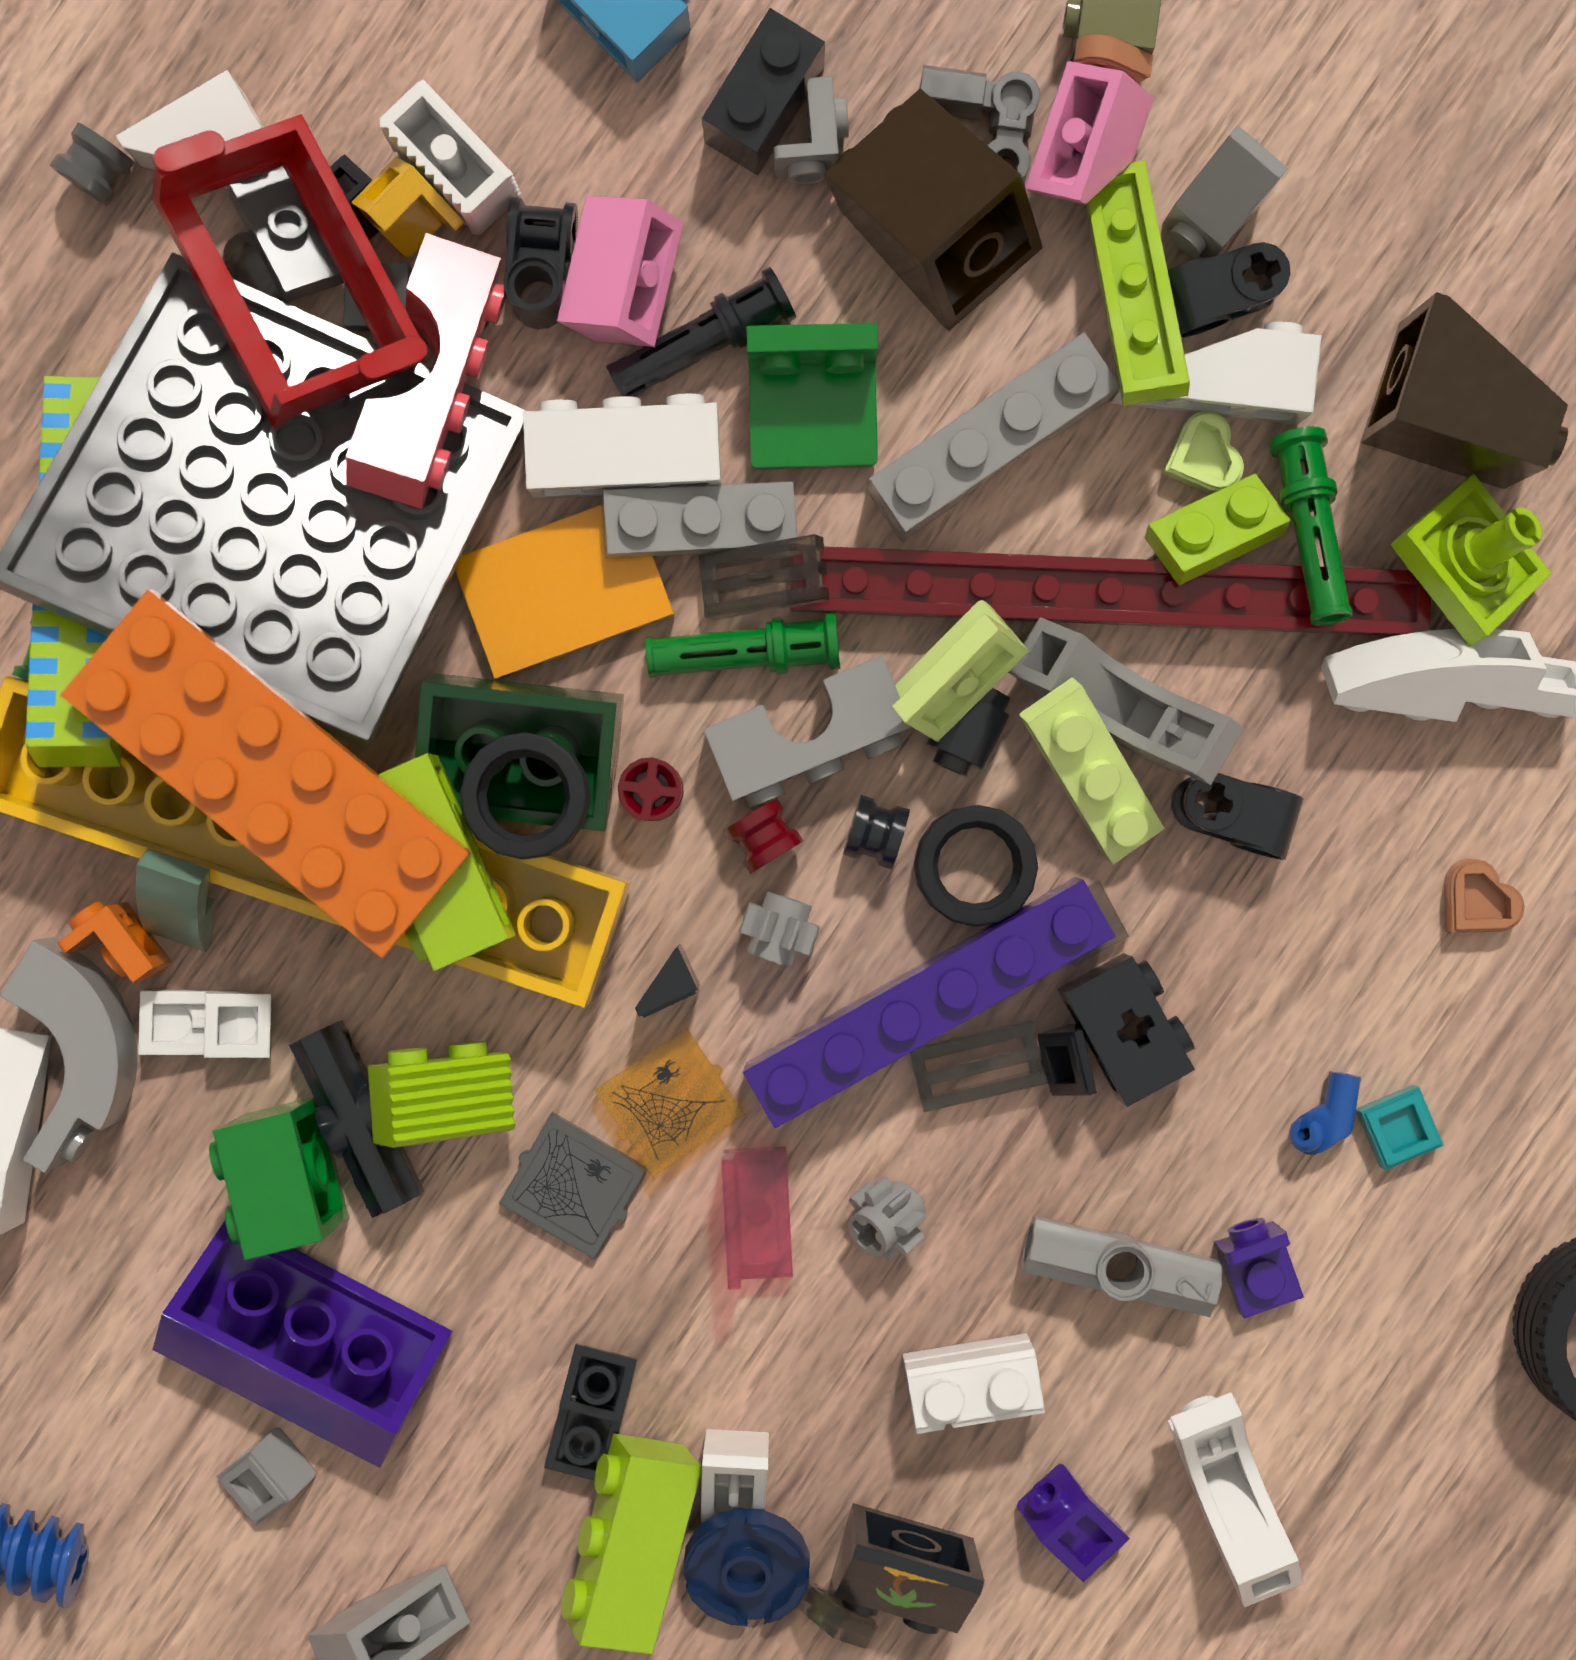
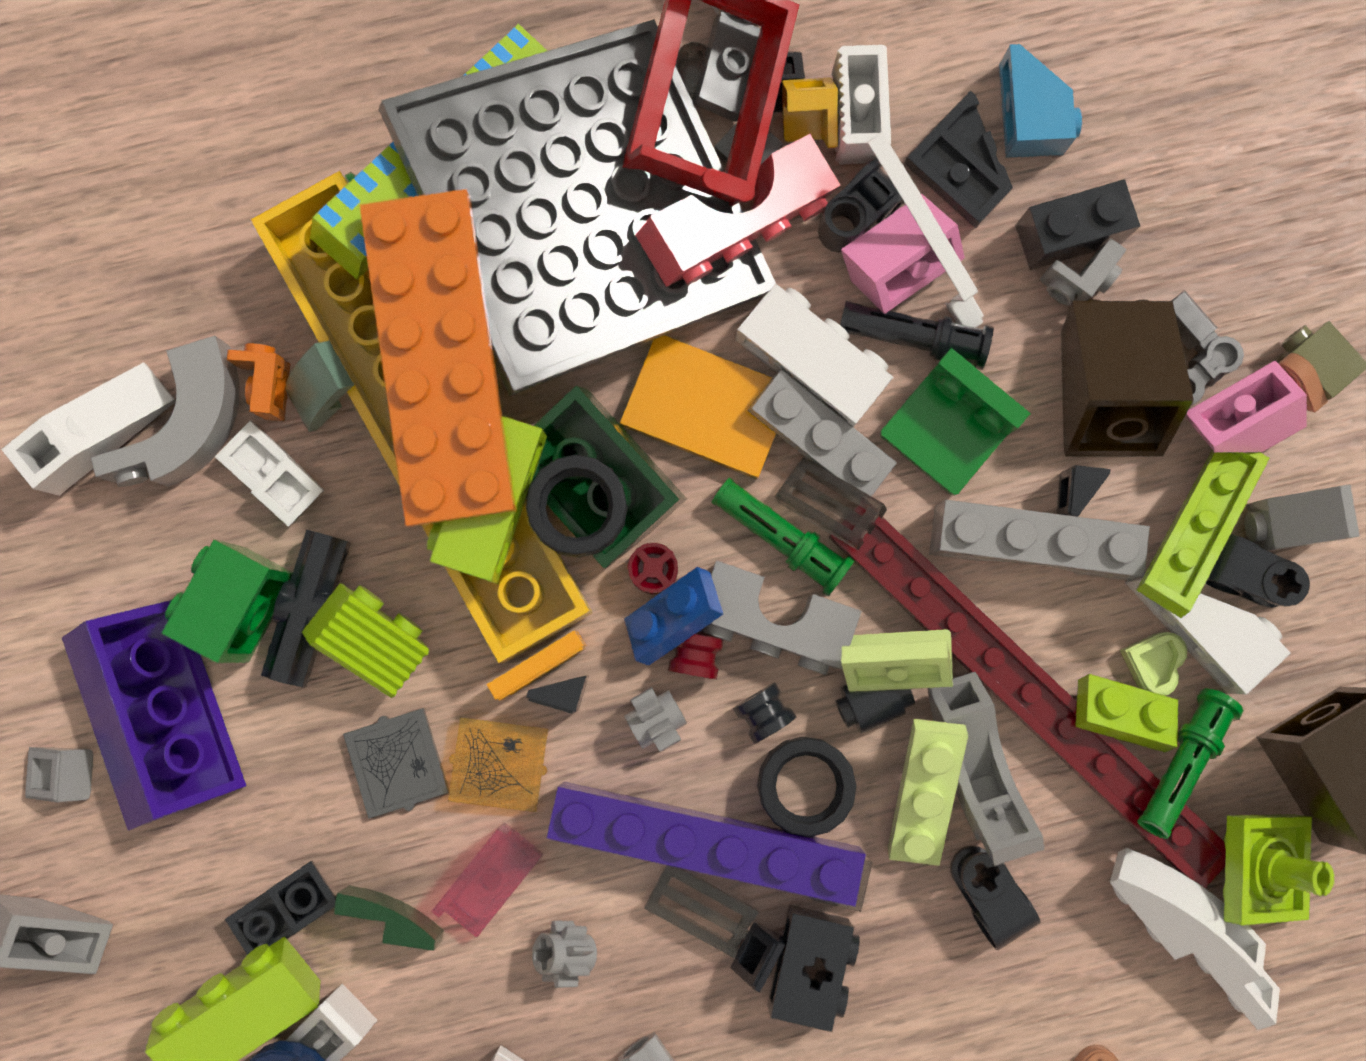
camera: 40 degrees right, 5 degrees down
(599, 128) = (962, 163): none -> black wing
(623, 978) = (537, 666): none -> light orange tile
(709, 817) = (673, 616): none -> blue plate
(712, 1324) = (403, 923): none -> dark green slope
(723, 269) = (962, 306): none -> white piece
(986, 352) = (1078, 487): none -> black slope

